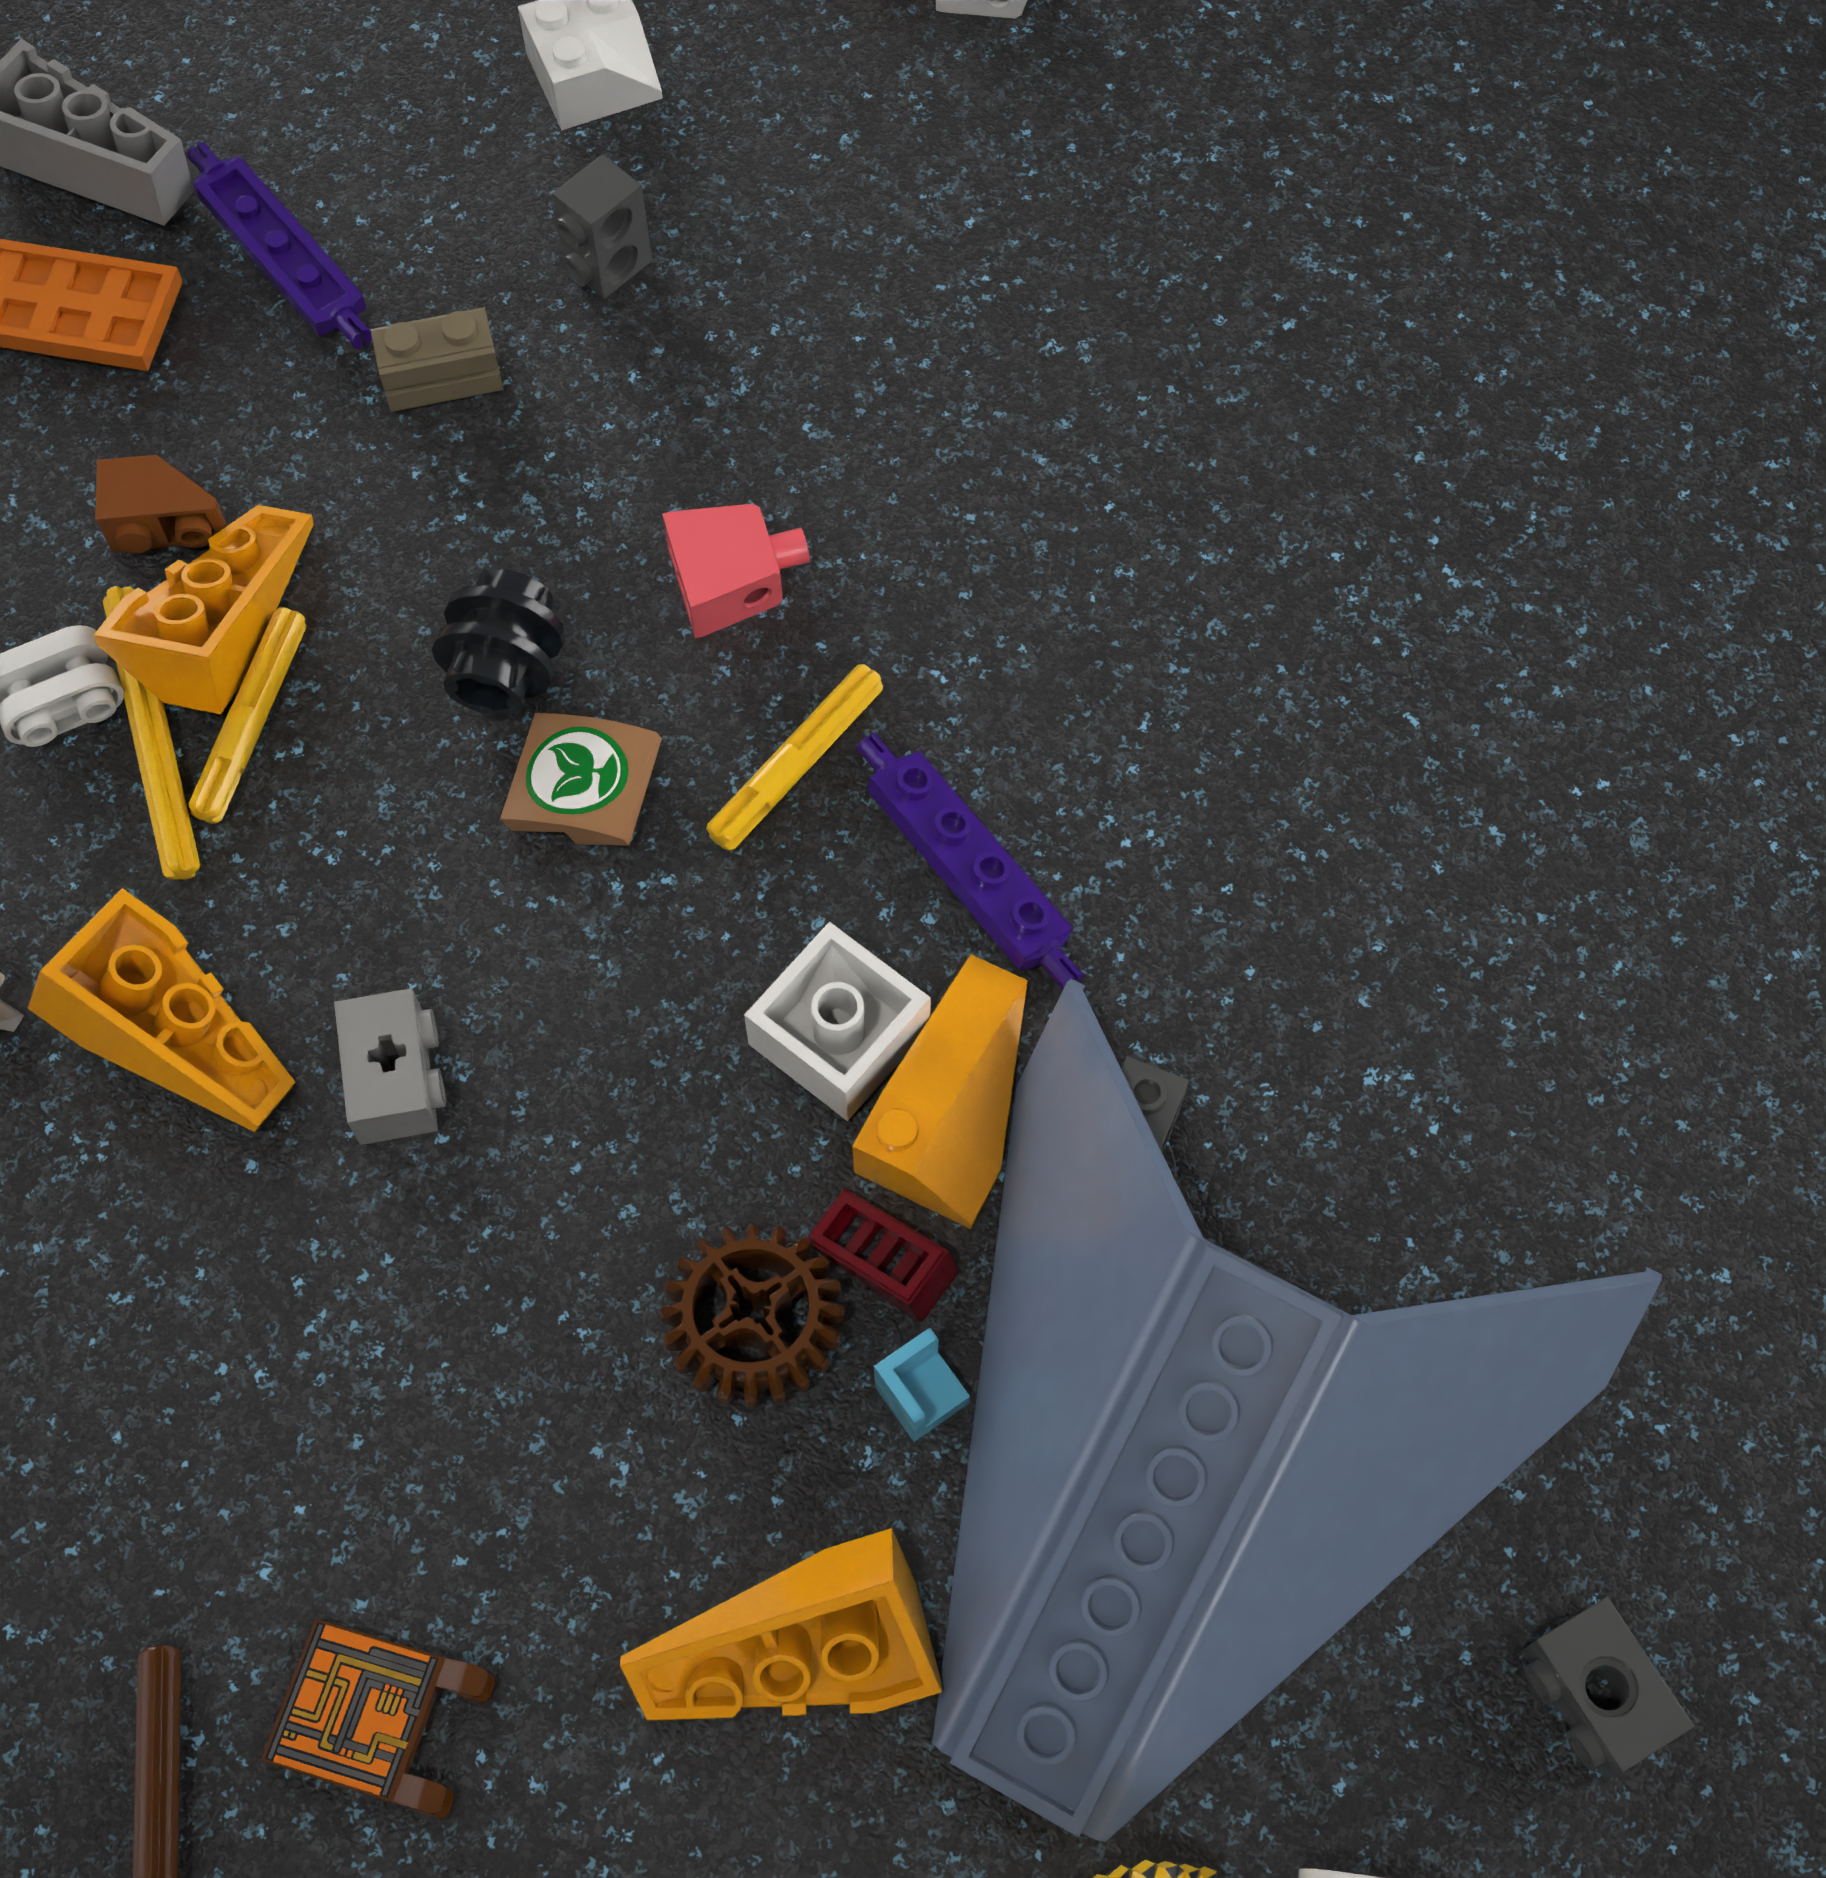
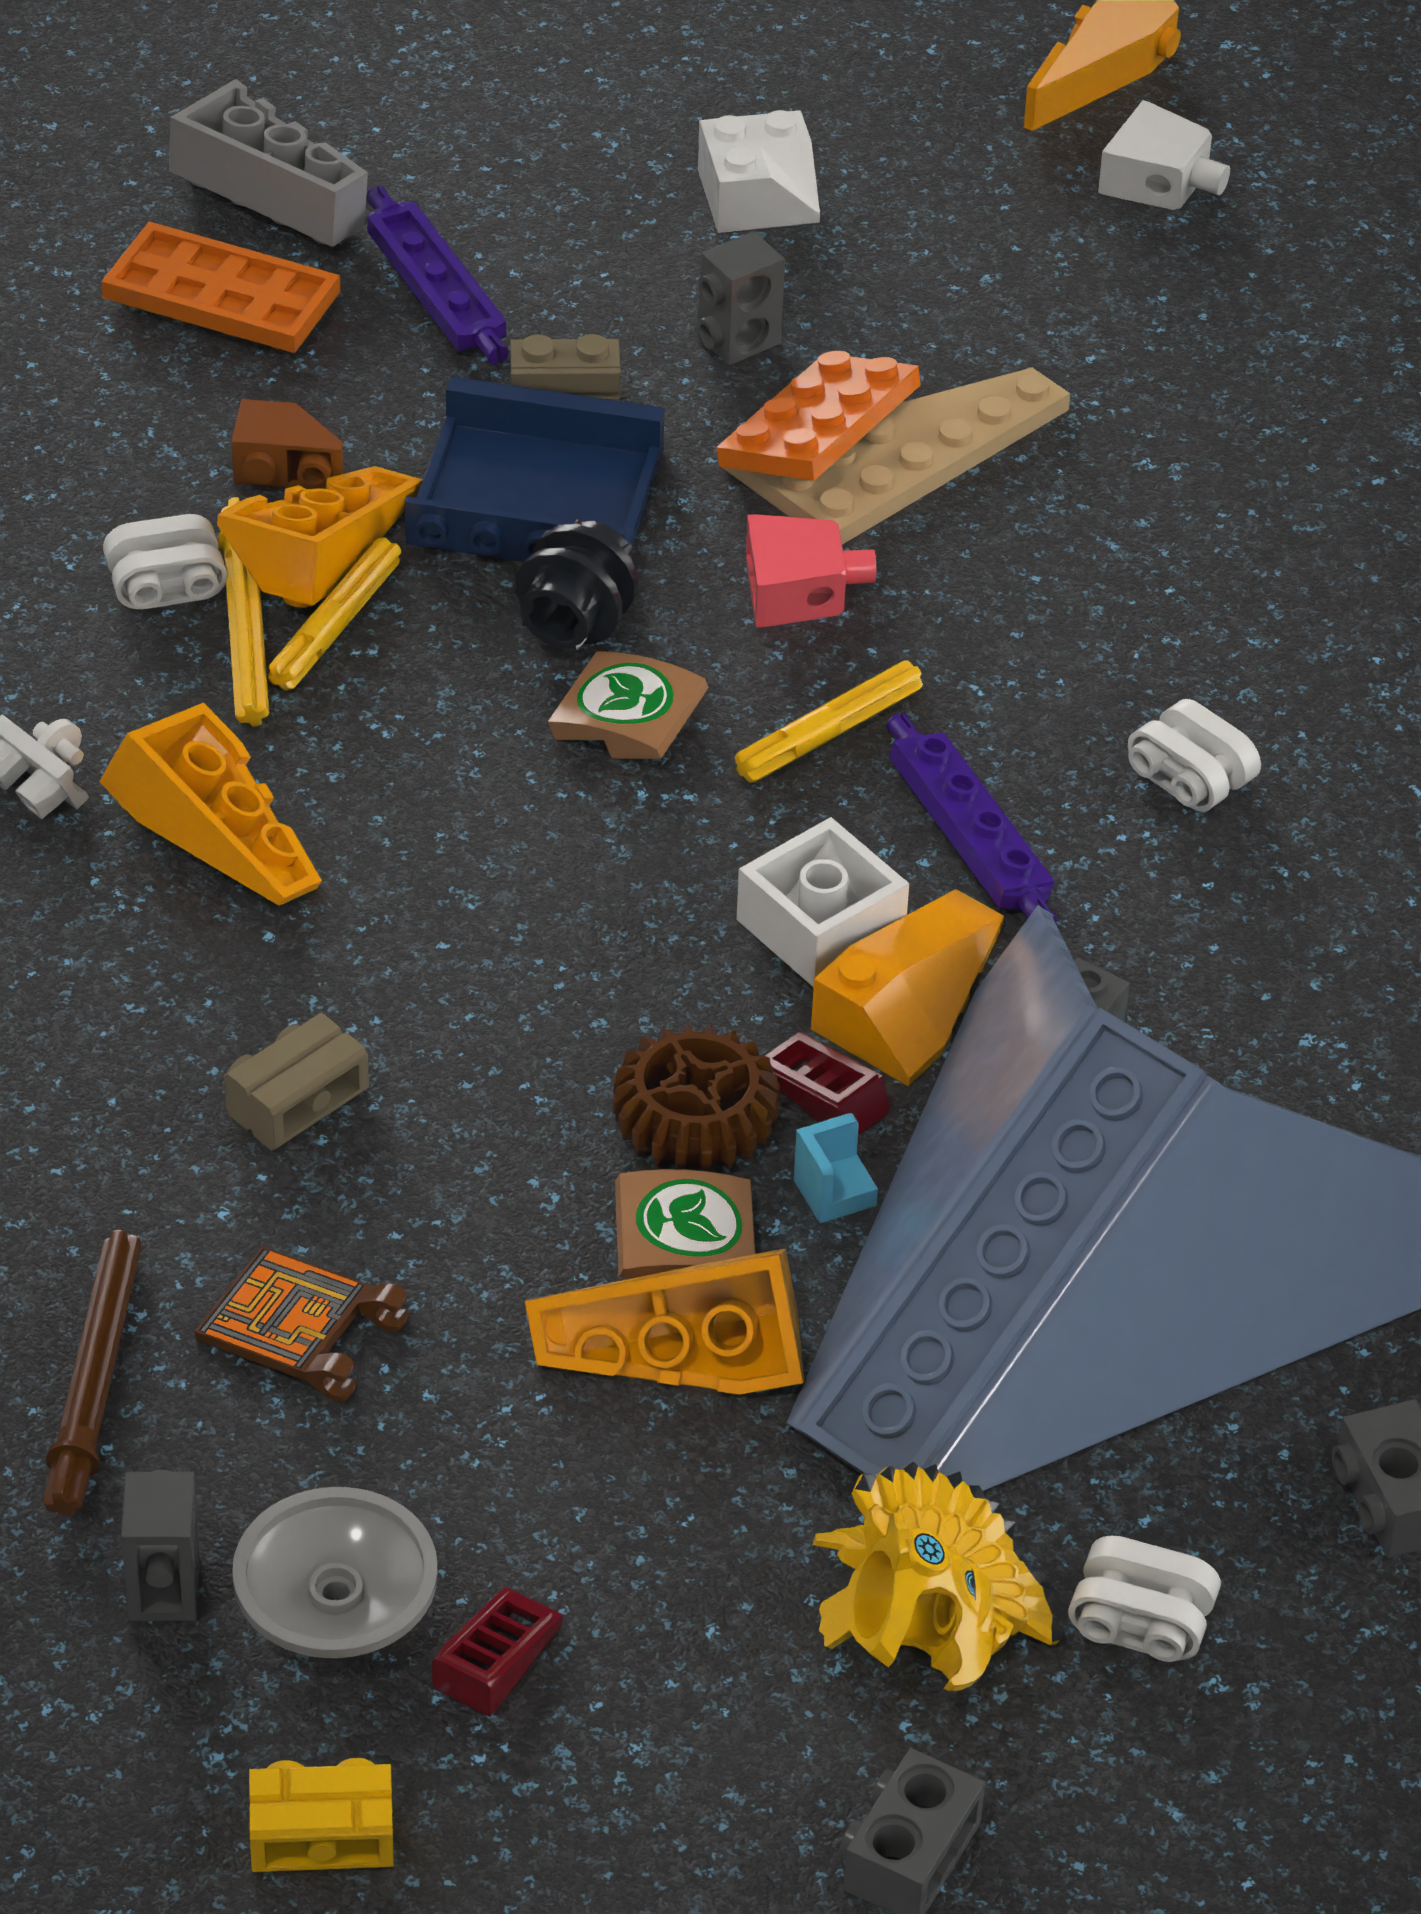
camera: 10 degrees right, 20 degrees down
(311, 1383) = (295, 1080): none -> dark tan brick
(382, 1101) = (408, 875): light grey brick -> none
(428, 489) = (532, 461): none -> dark blue panel
(711, 363) = (819, 416): none -> orange plate
(771, 1495) = (680, 1220): none -> slope
(778, 401) = (916, 451): none -> tan wing
(1183, 732) = (1193, 755): none -> white brick

